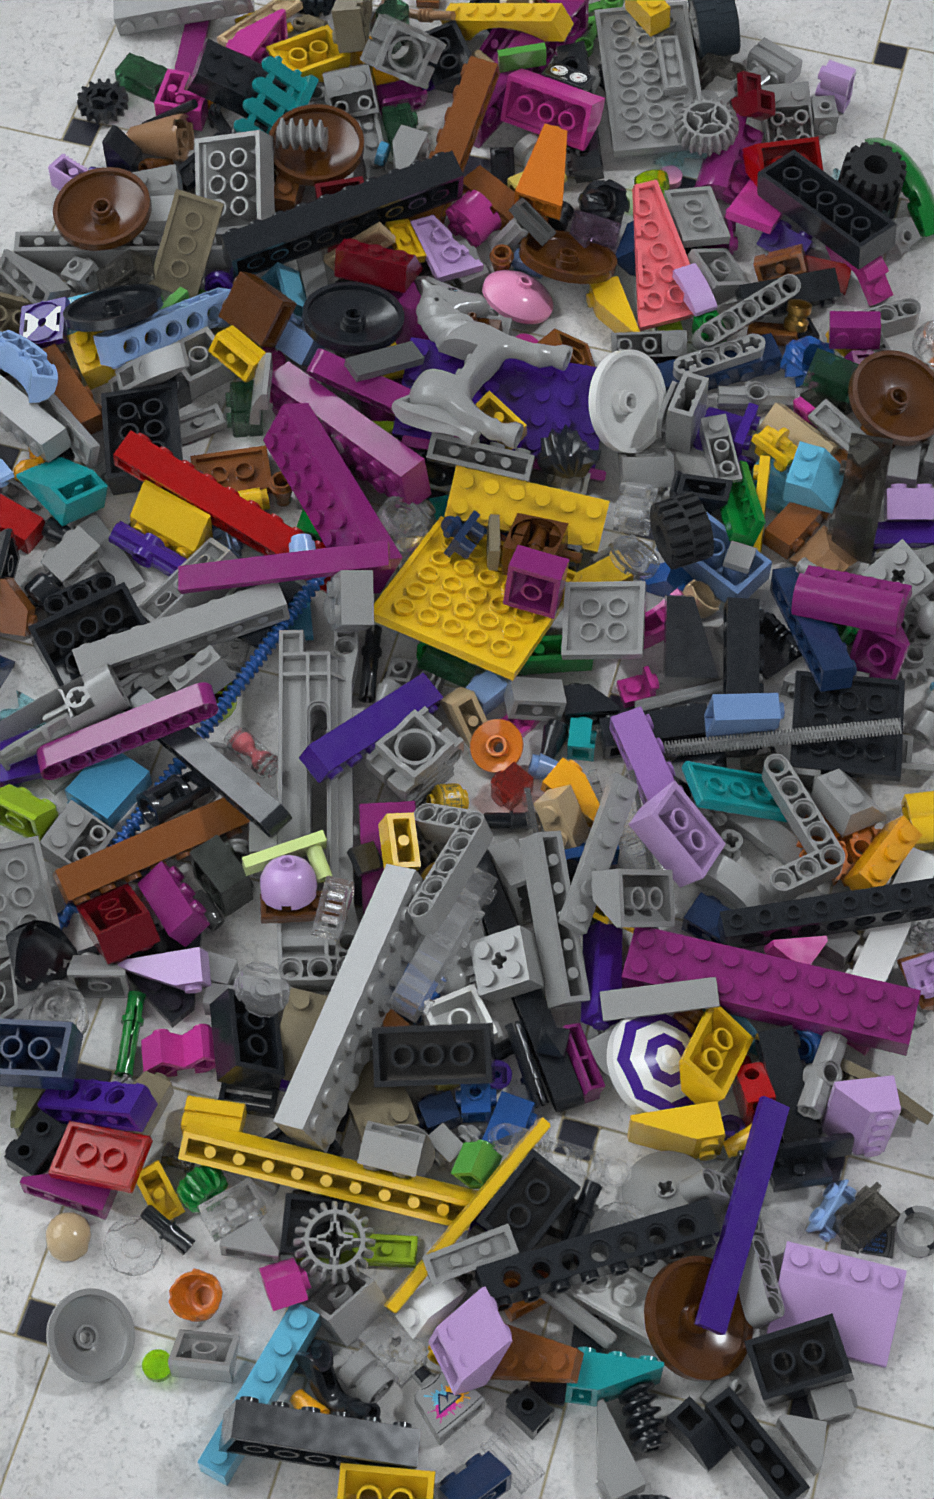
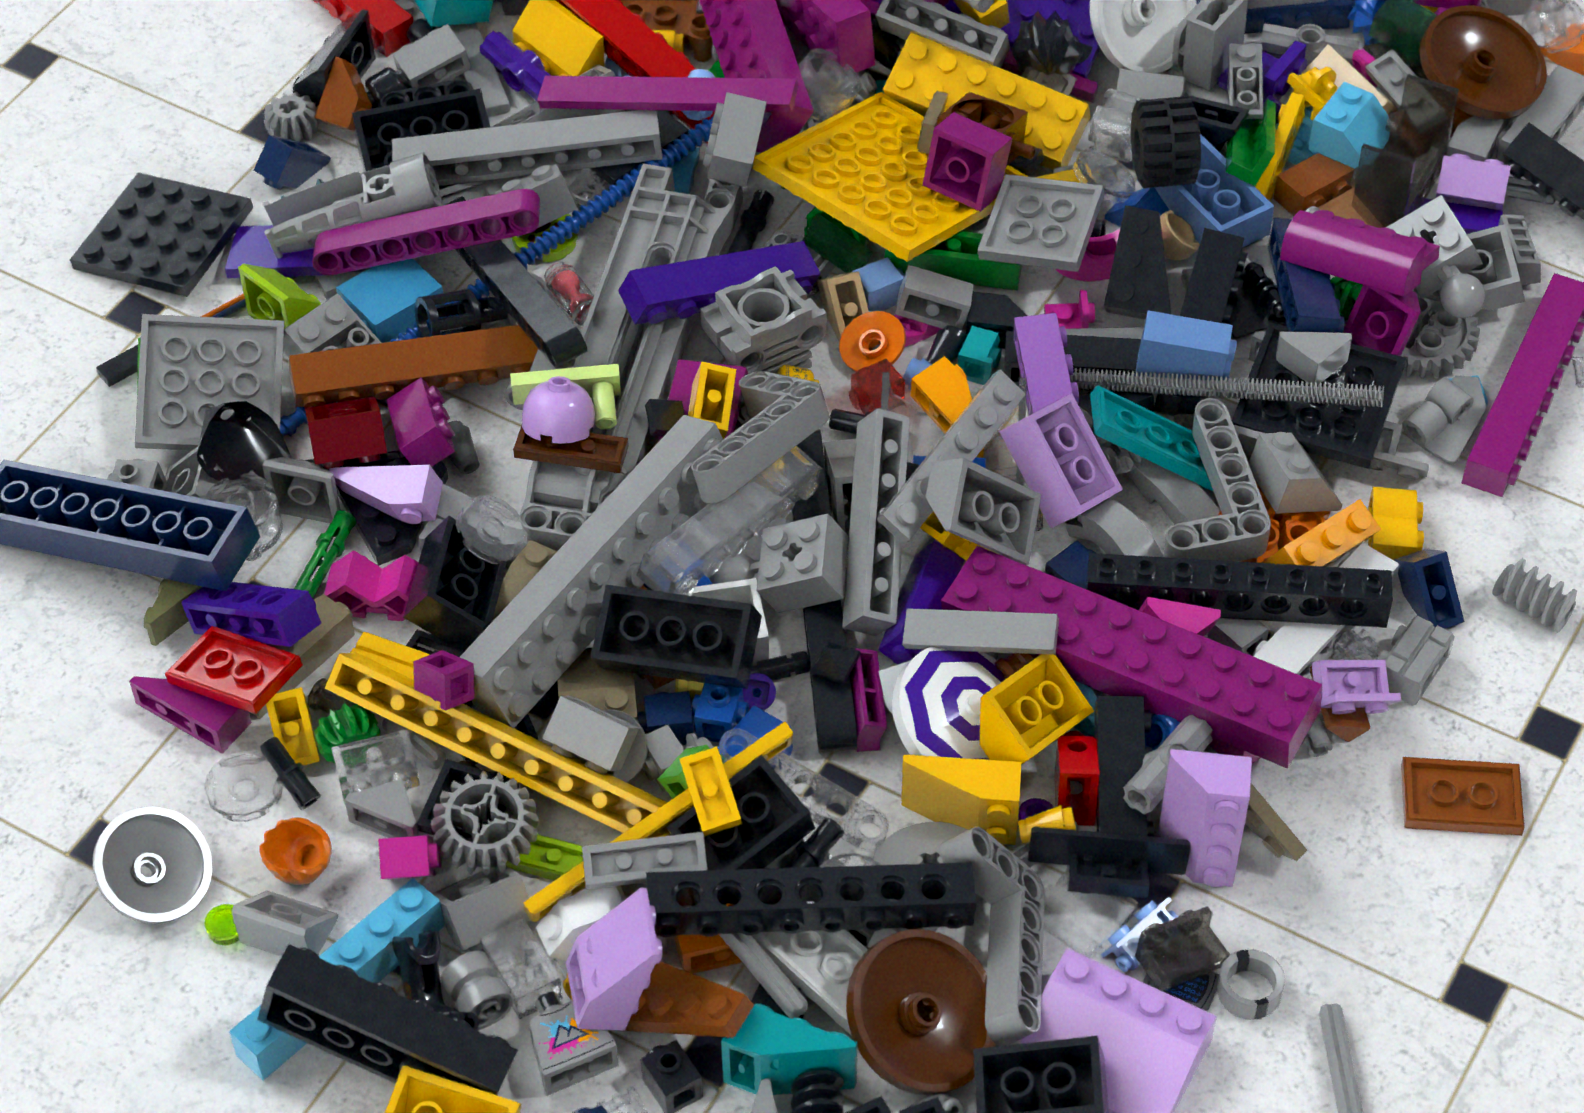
camera: 15 degrees right, 10 degrees down
(36, 1145) = (161, 647): black brick -> none
(68, 1236) = (169, 758): tan hair -> none
(221, 875) = (489, 407): pearl dark grey brick -> none
(272, 1135) = (445, 679): none -> magenta brick
(336, 890) = (611, 429): clear slope -> none
(454, 528) = (898, 107): dark blue hips -> none
(504, 1188) = (710, 791): none -> yellow plate
(530, 1076) = (798, 702): black pin -> none
(561, 812) = (928, 417): tan brick -> none
(732, 845) = (1139, 497): light grey bush -> none
(739, 557) = (1234, 192): light grey tile -> none
(742, 1216) = (1012, 900): dark purple tile -> none
(837, 697) = (1313, 354): none -> light grey slope

